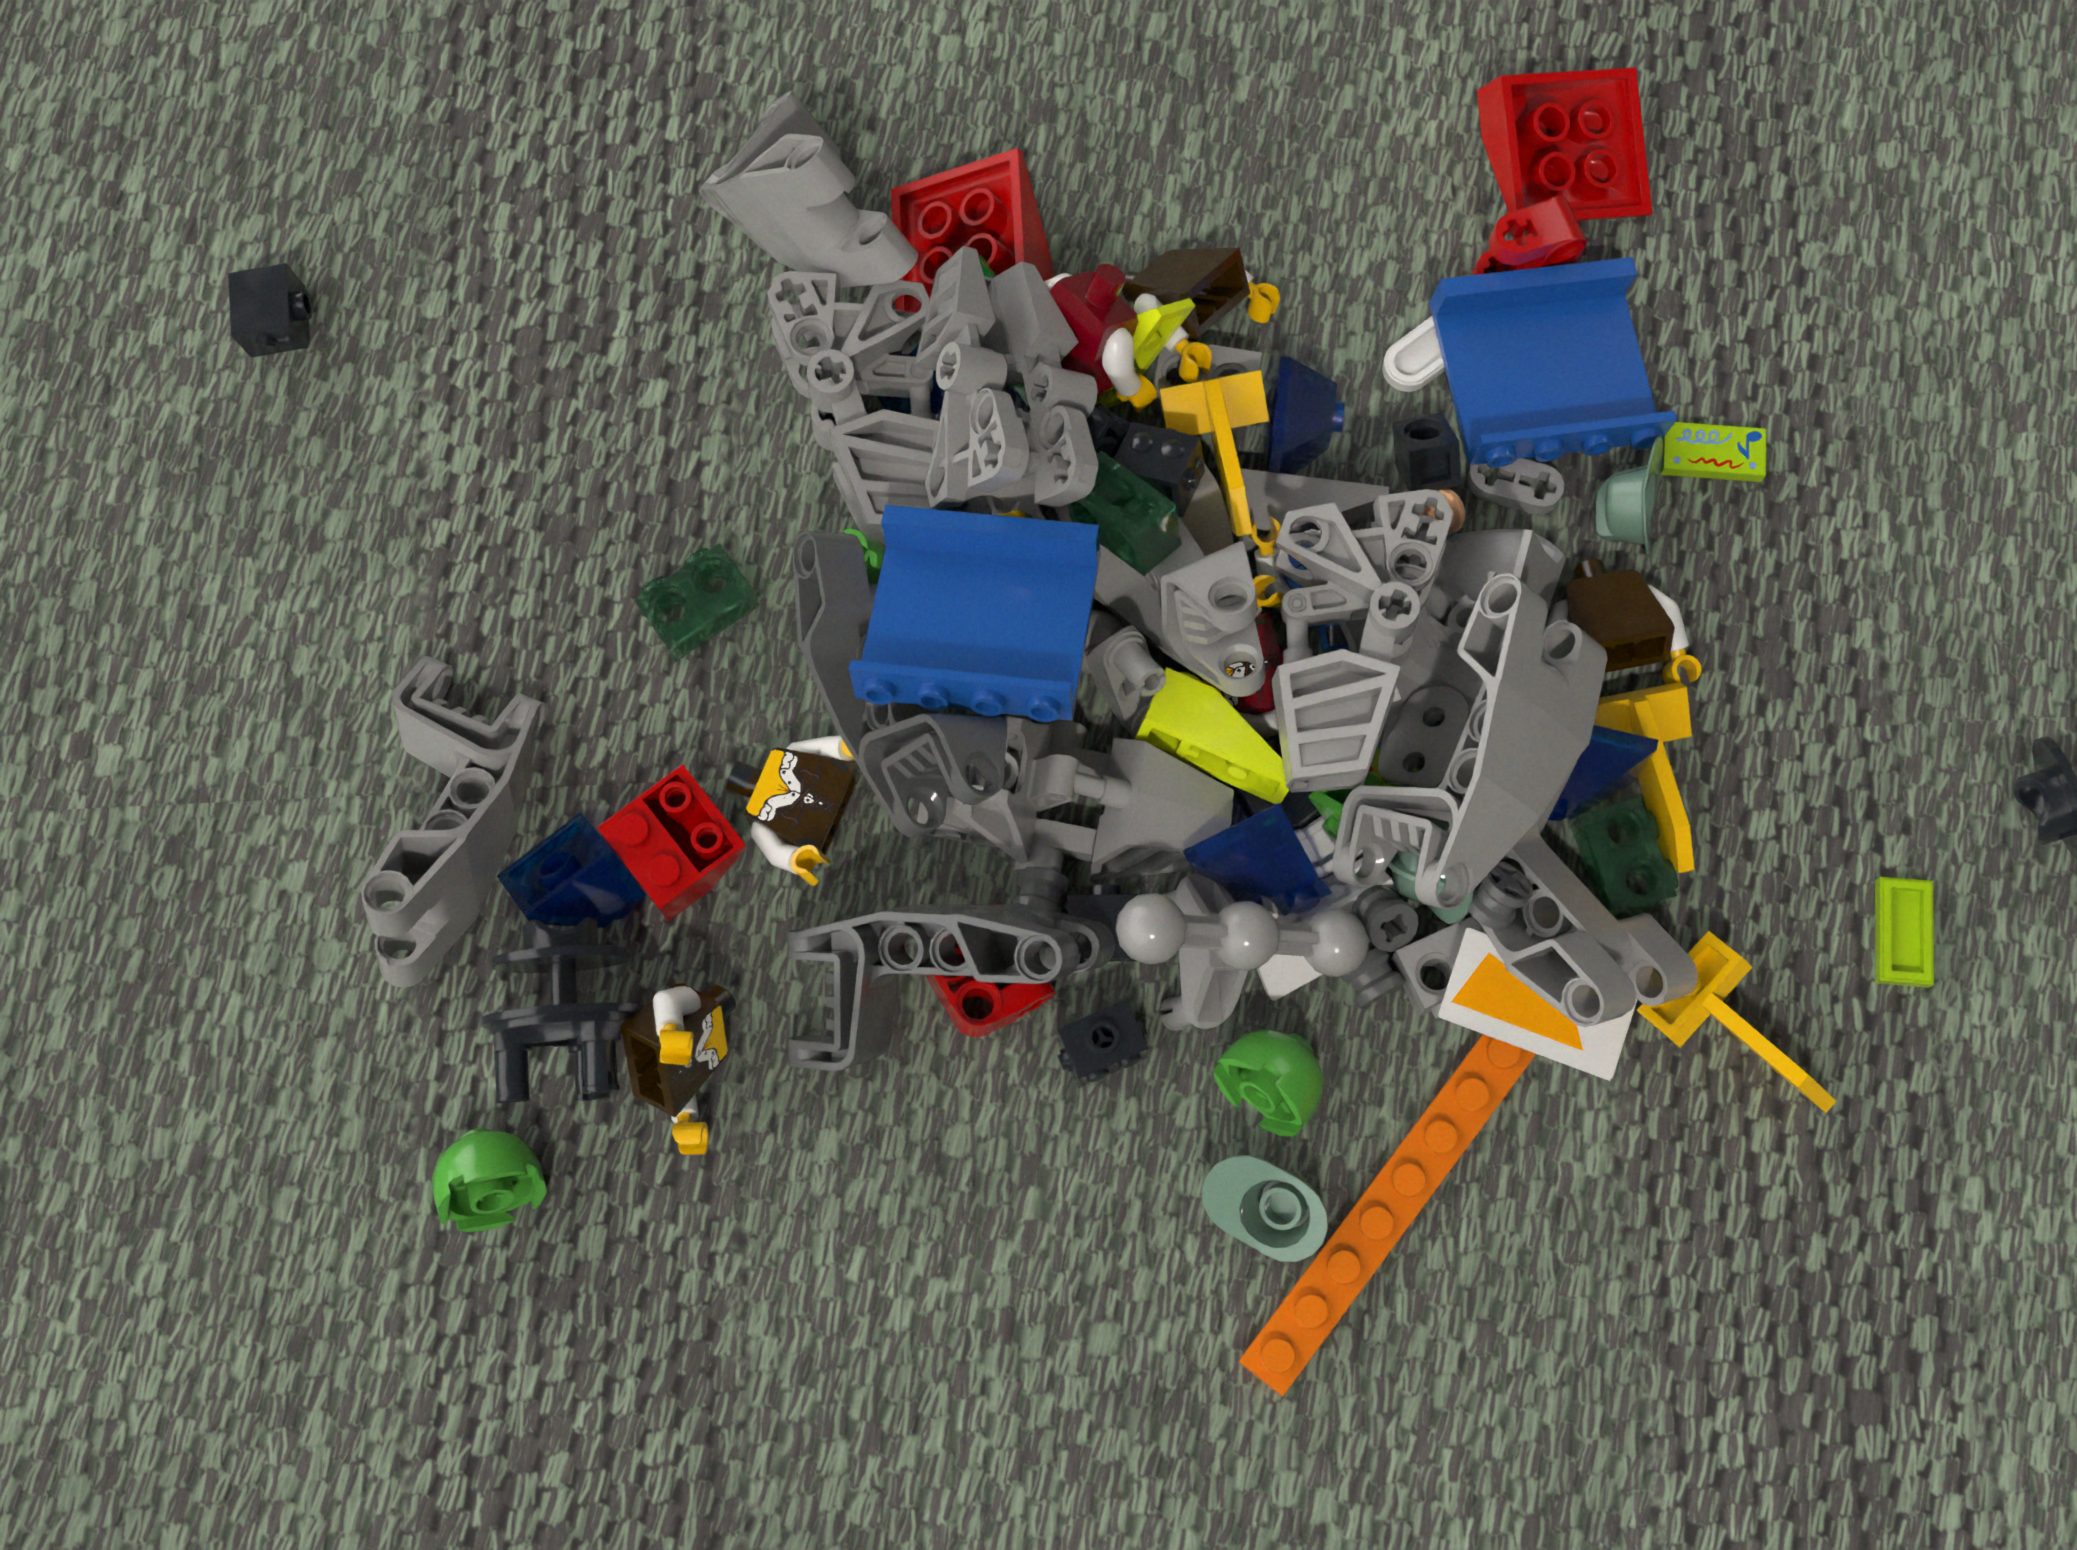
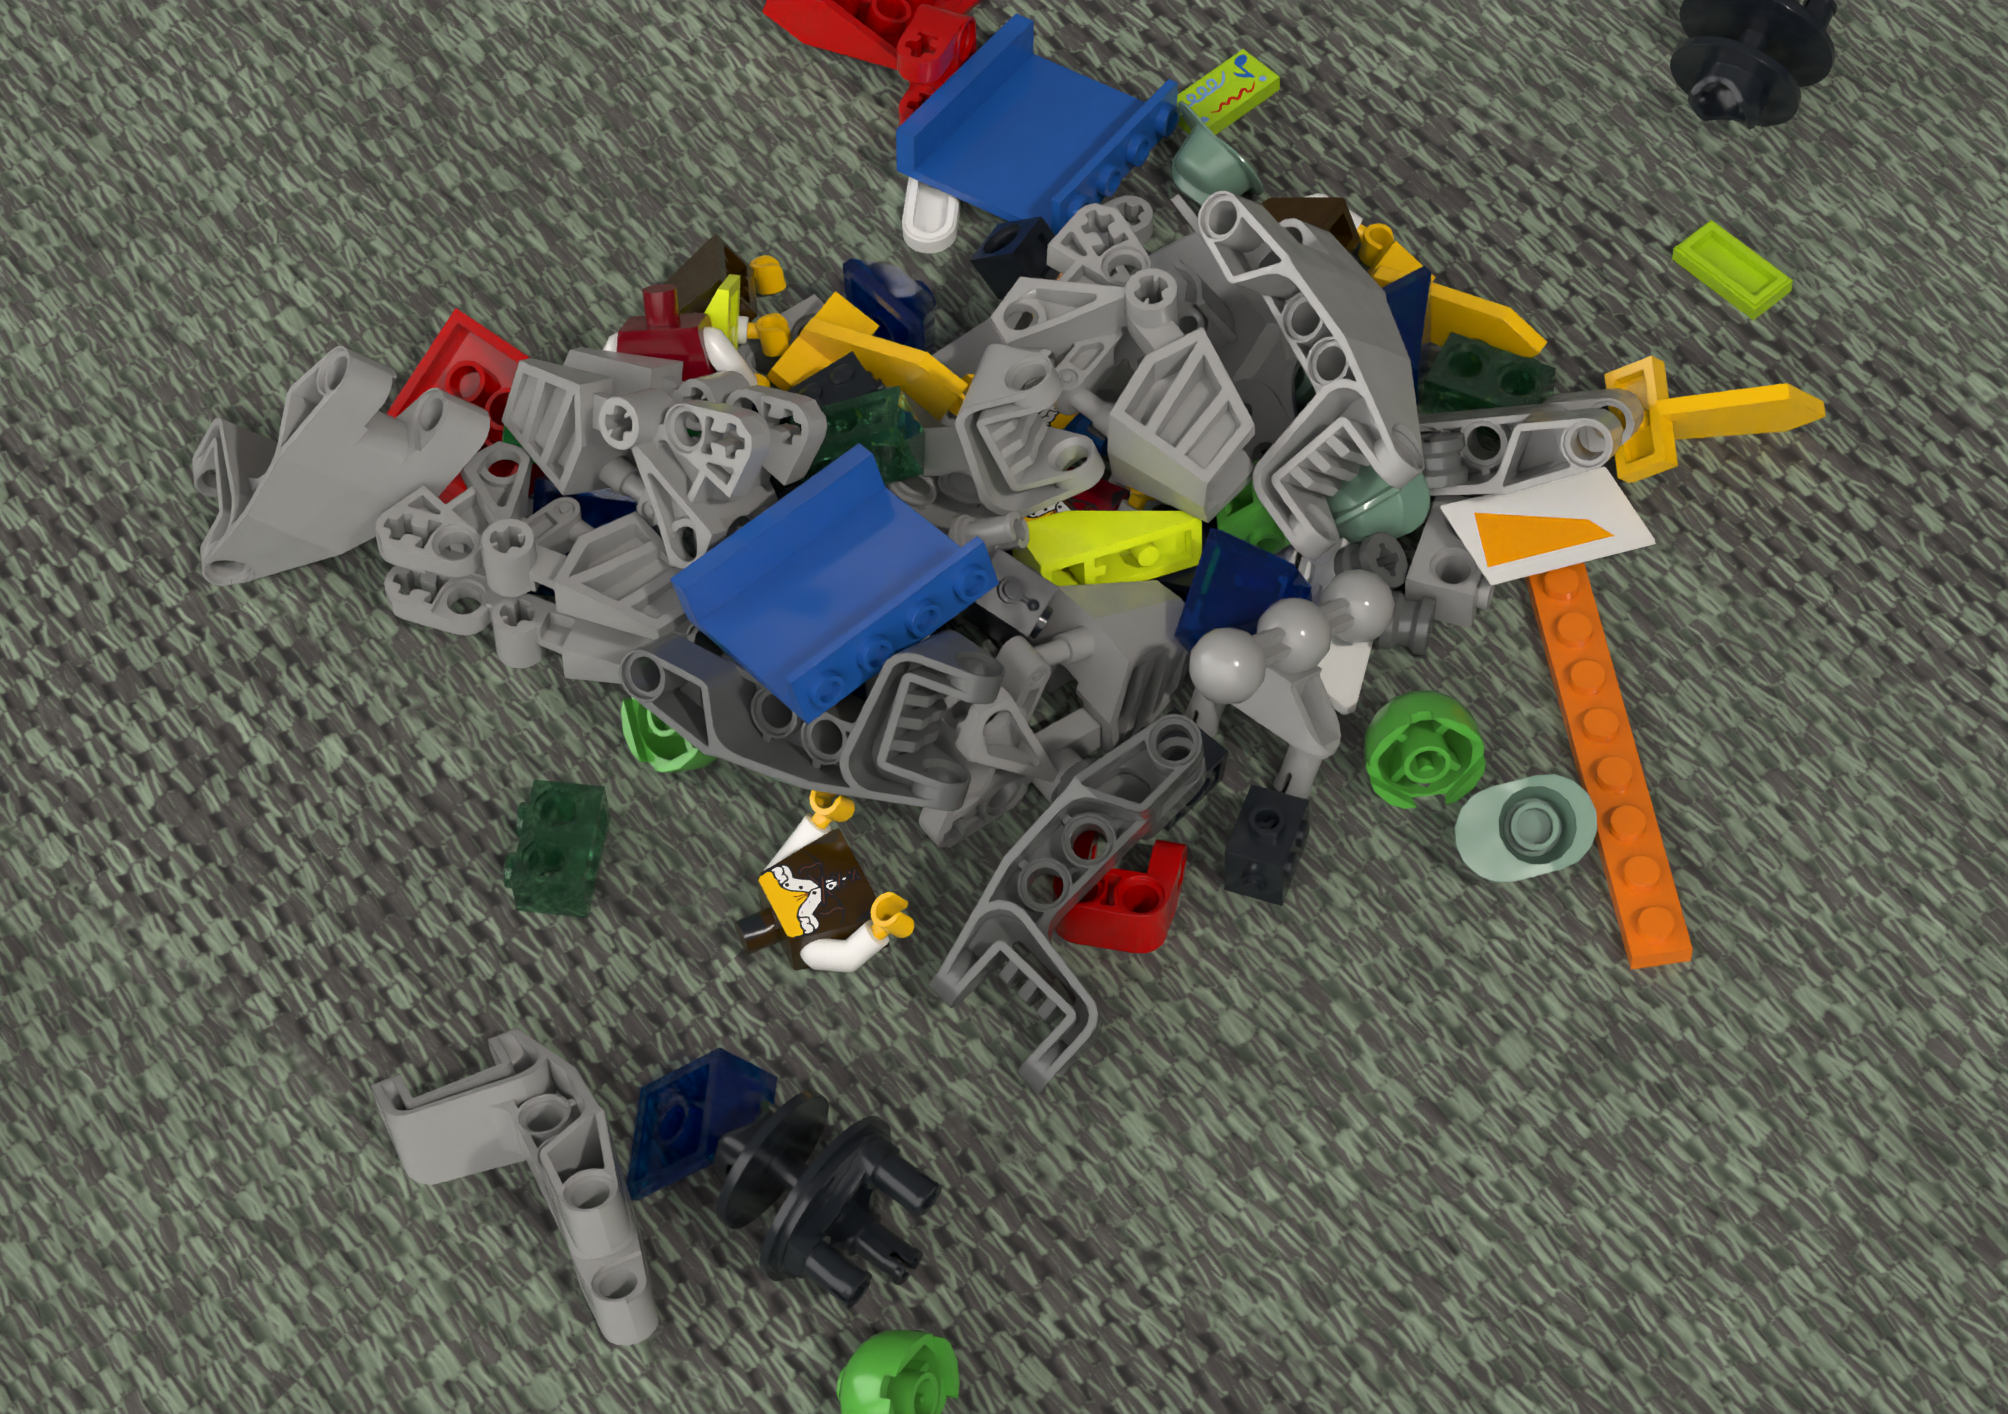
camera: 45 degrees left, 20 degrees down
(673, 842) = (759, 1010): red slope -> none
(674, 1051) = (941, 1140): torso -> none
(1101, 721) = (1016, 604): none -> black head

